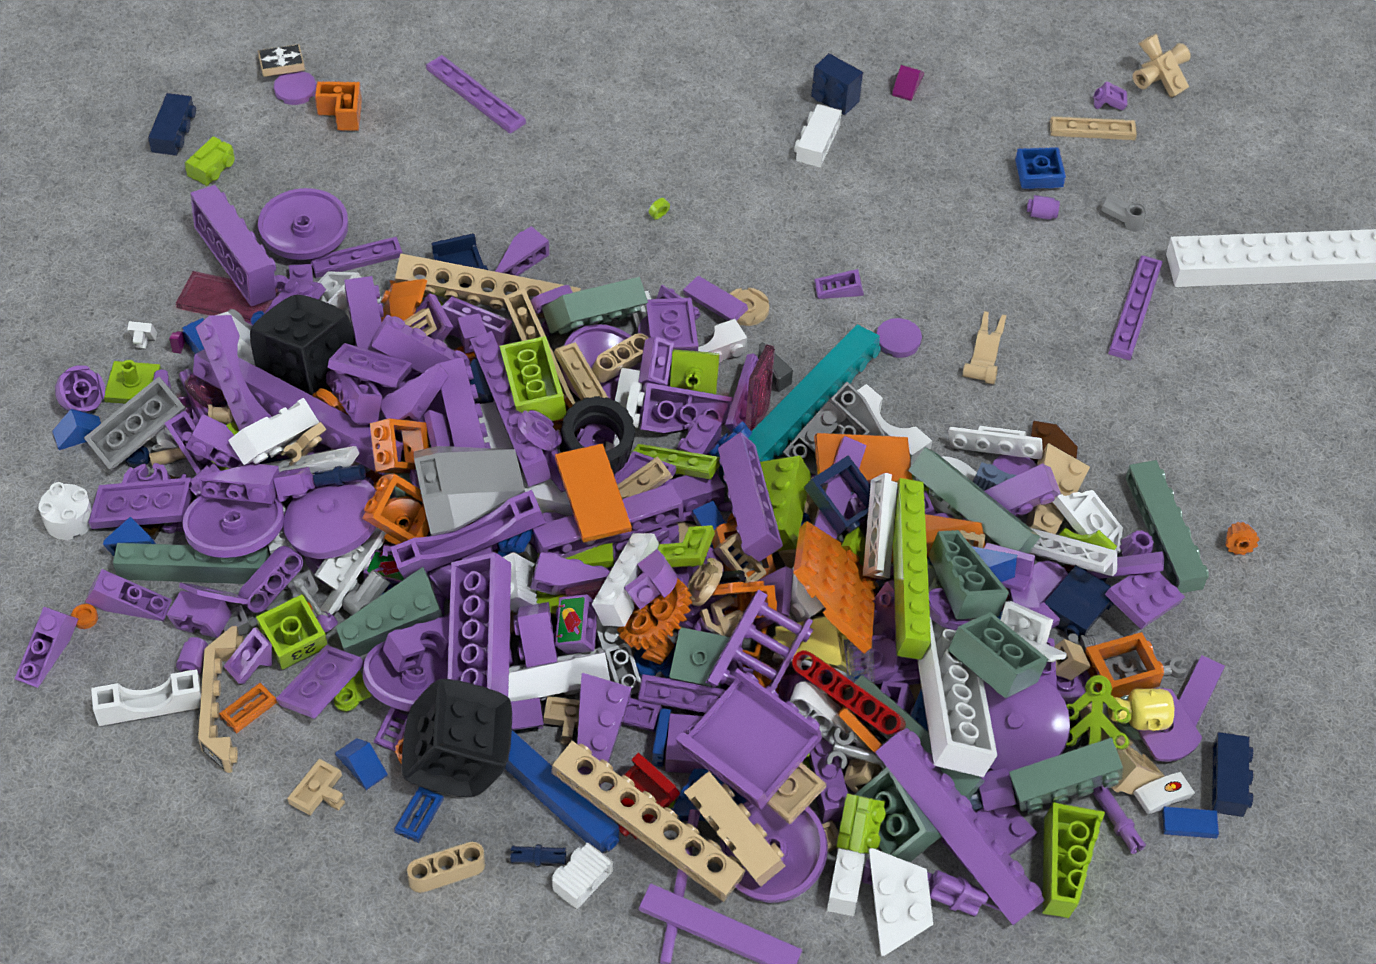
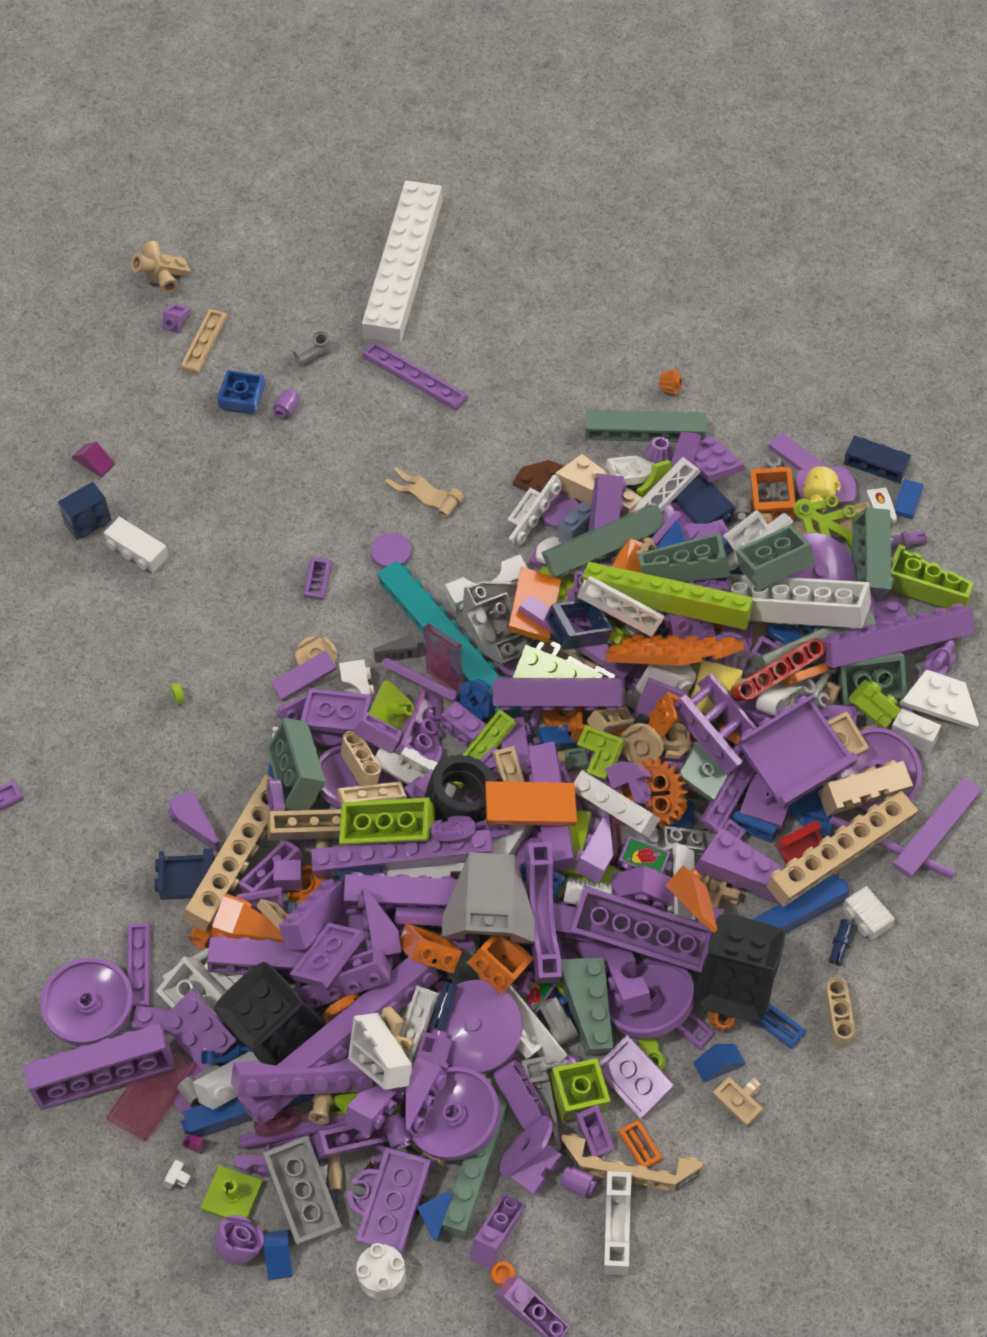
camera: 70 degrees left, 5 degrees up
(517, 672) = (693, 894): none -> orange wedge

